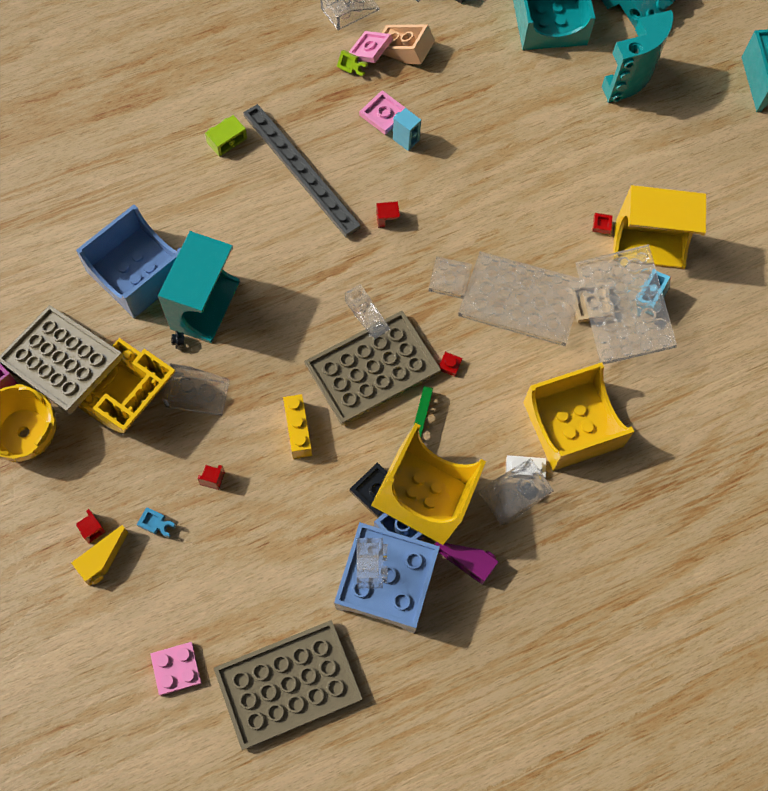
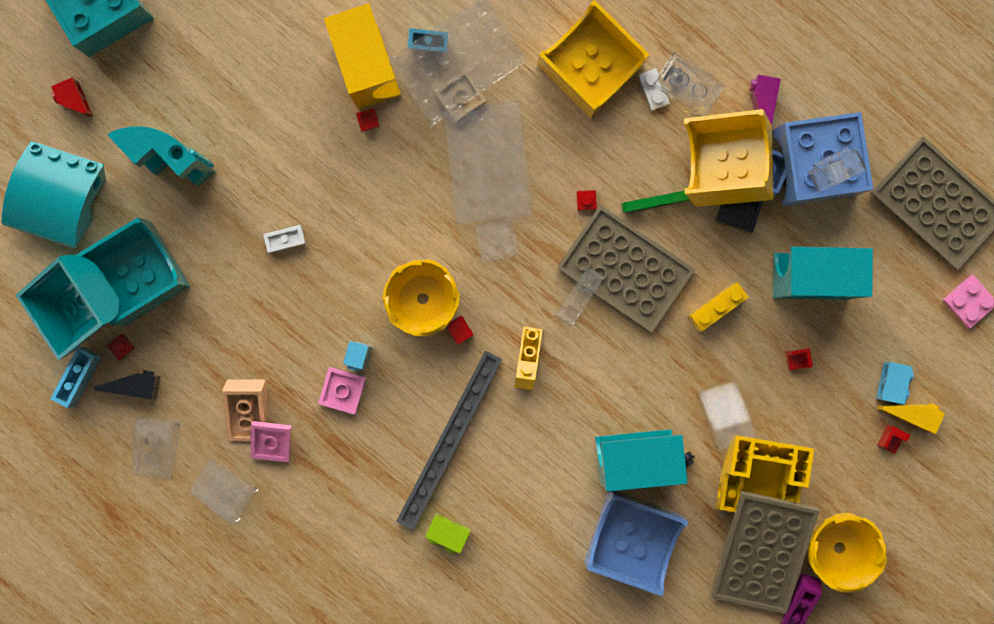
camera: 110 degrees left, 20 degrees up
(139, 552) = (894, 383): none -> medium azure brick
(153, 521) = (862, 387): dark azure plate -> none
(277, 517) = (823, 273): none -> teal container
(335, 255) = (528, 358): none -> yellow slope
(349, 63) = (299, 453): lime plate -> none
(431, 179) = (402, 294): none -> yellow piece
(529, 123) = (284, 239): none -> white plate
(712, 30) = (71, 96): none -> red slope

